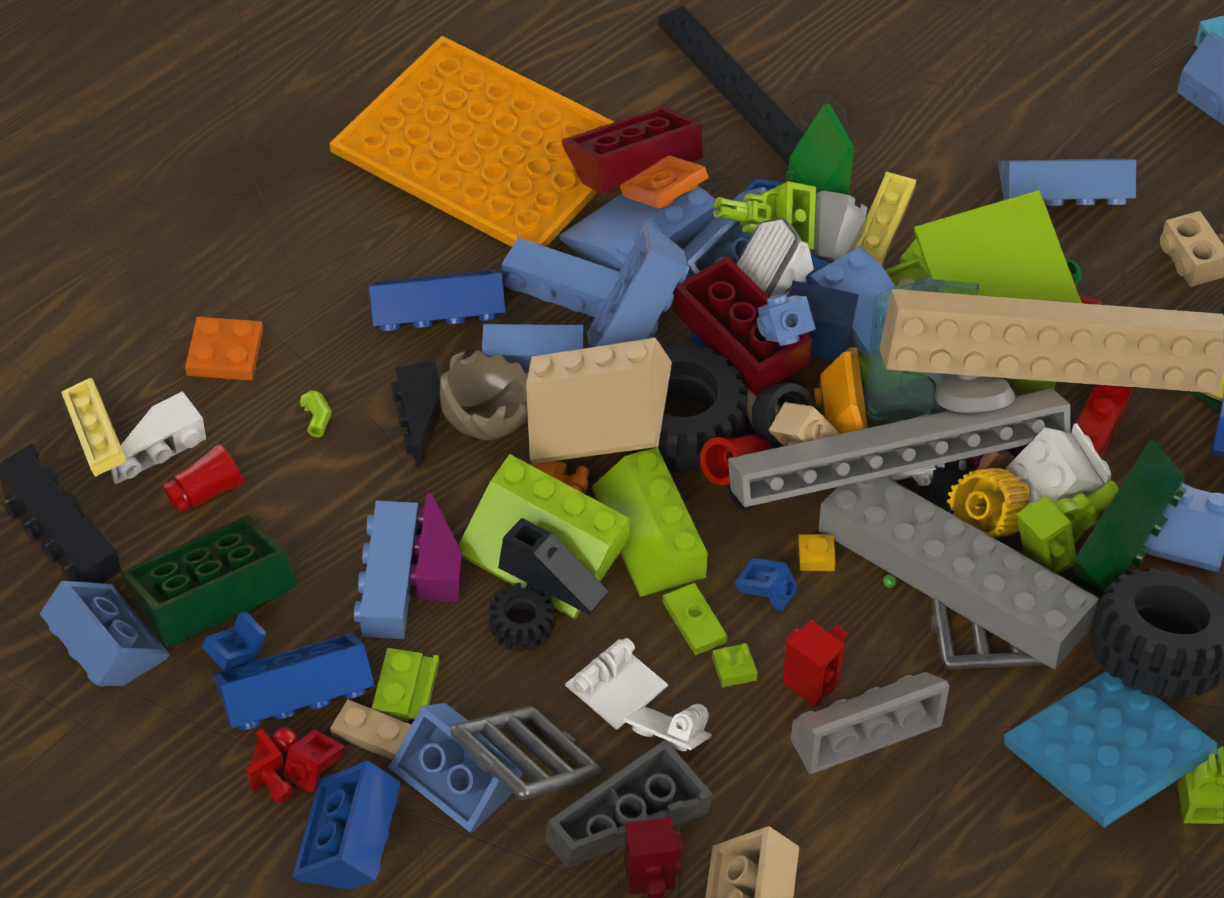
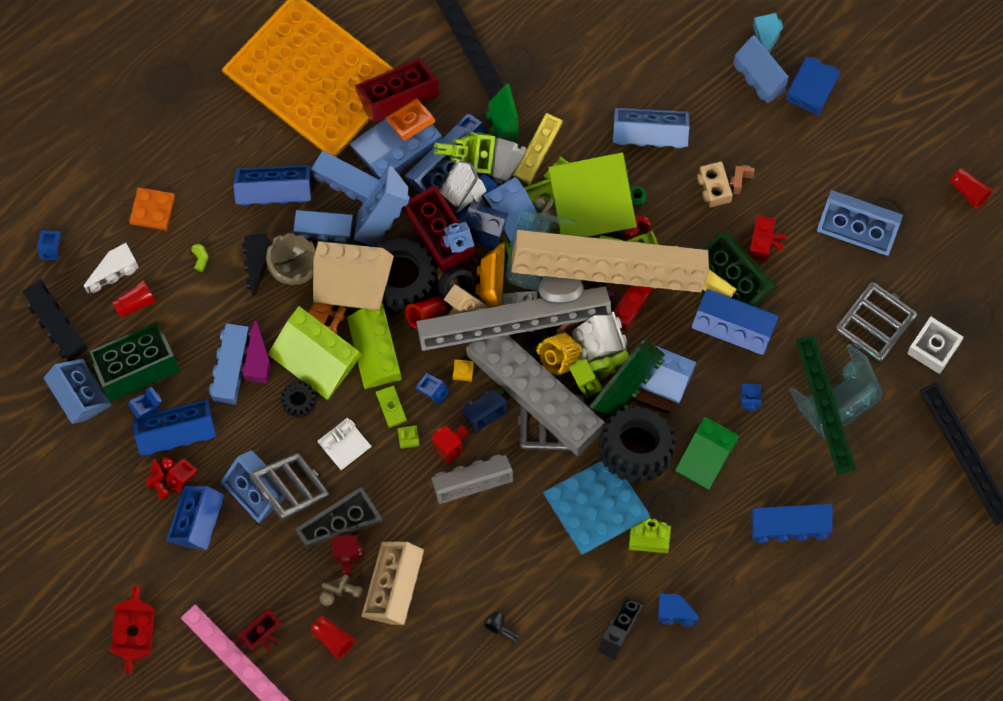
camera: 10 degrees right, 20 degrees up
(40, 412) = (48, 245): none -> blue bracket
(93, 427) = (76, 260): light yellow tile -> none
(369, 729) = (212, 459): tan plate -> none
(405, 683) = (233, 434): lime plate -> none
(548, 565) = (314, 376): black slope -> none
(681, 731) = (367, 475): white hinge -> none
(872, 606) = (485, 410): none -> dark blue slope

